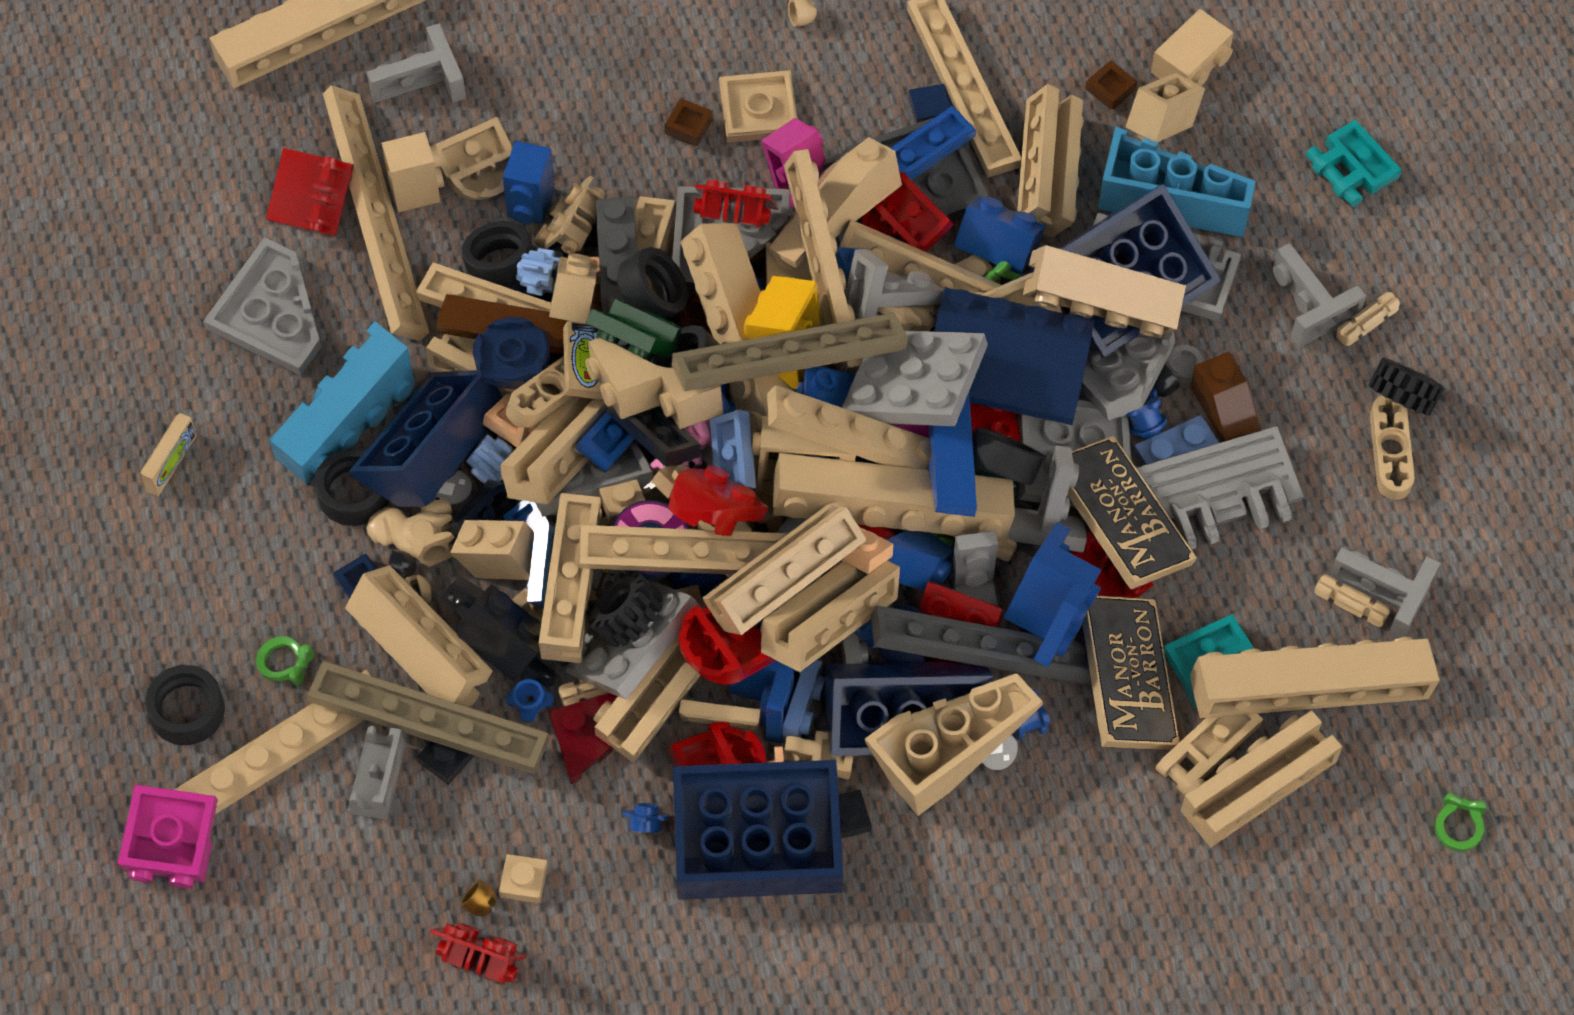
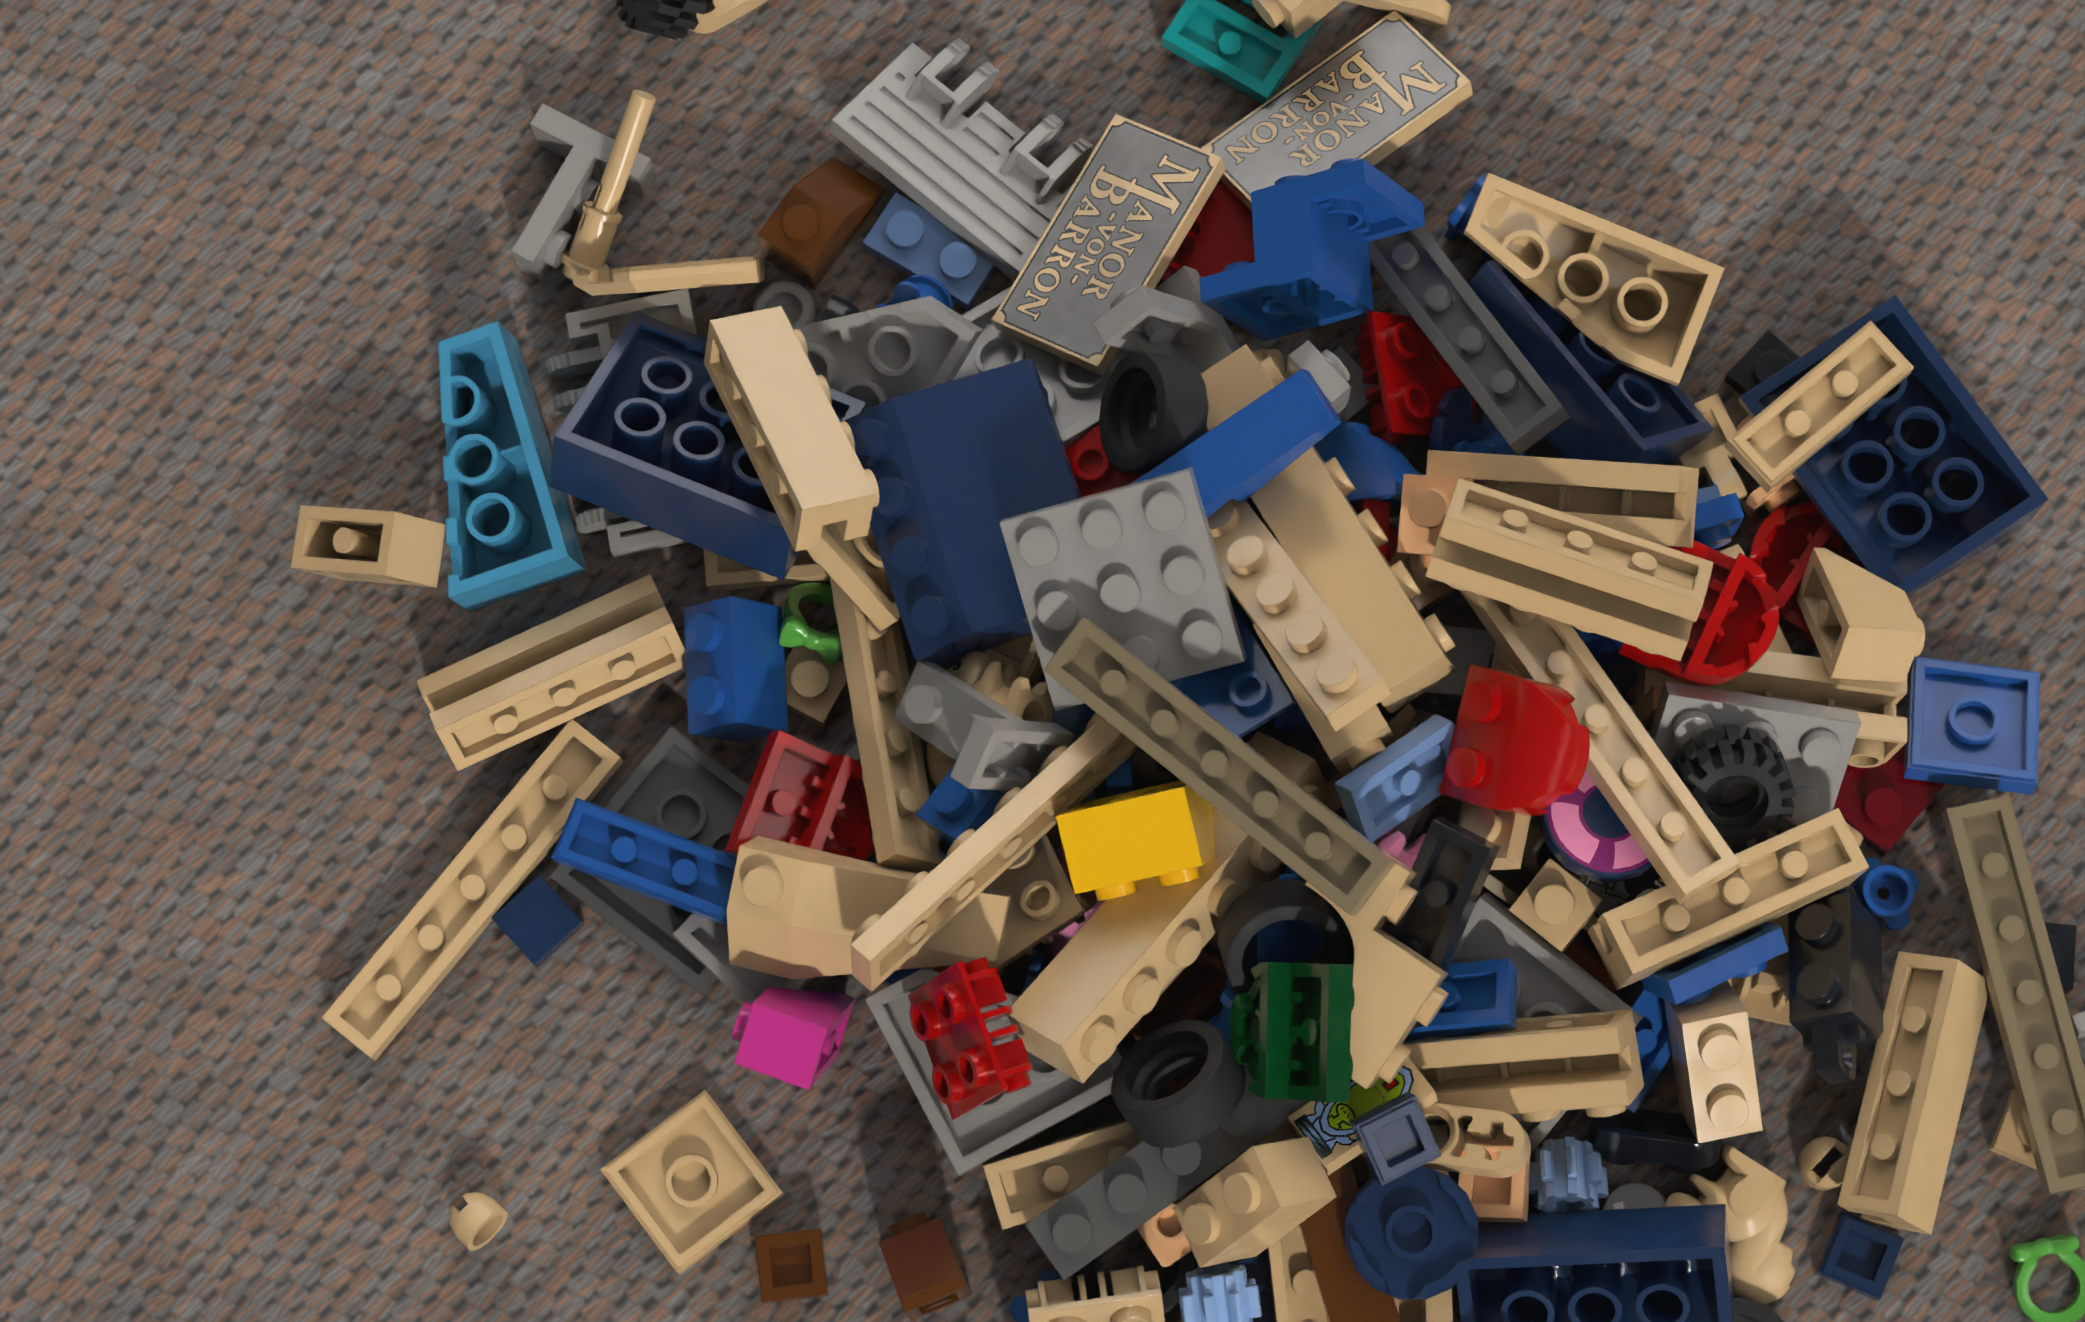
camera: 115 degrees left, 15 degrees up
(402, 563) = (1809, 1207): black hinge -> none
(558, 356) = (1395, 1138): none -> dark blue tile
(586, 792) = (1972, 725): none -> blue tile
(646, 165) = (923, 1266): none -> reddish brown slope
(646, 817) = (1955, 623): blue plate -> none
(672, 739) = (1858, 620): none -> tan slope
(803, 791) = (1818, 406): none -> tan tile
(1111, 85) = (350, 667): reddish brown plate -> none
(1194, 49) = (222, 575): tan brick -> none
(1229, 311) = (671, 276): none -> tan tile
(1270, 286) = (601, 216): none -> tan pin
(1361, 156) = (277, 244): teal plate -> none
(1367, 319) = (521, 91): tan axle -> none

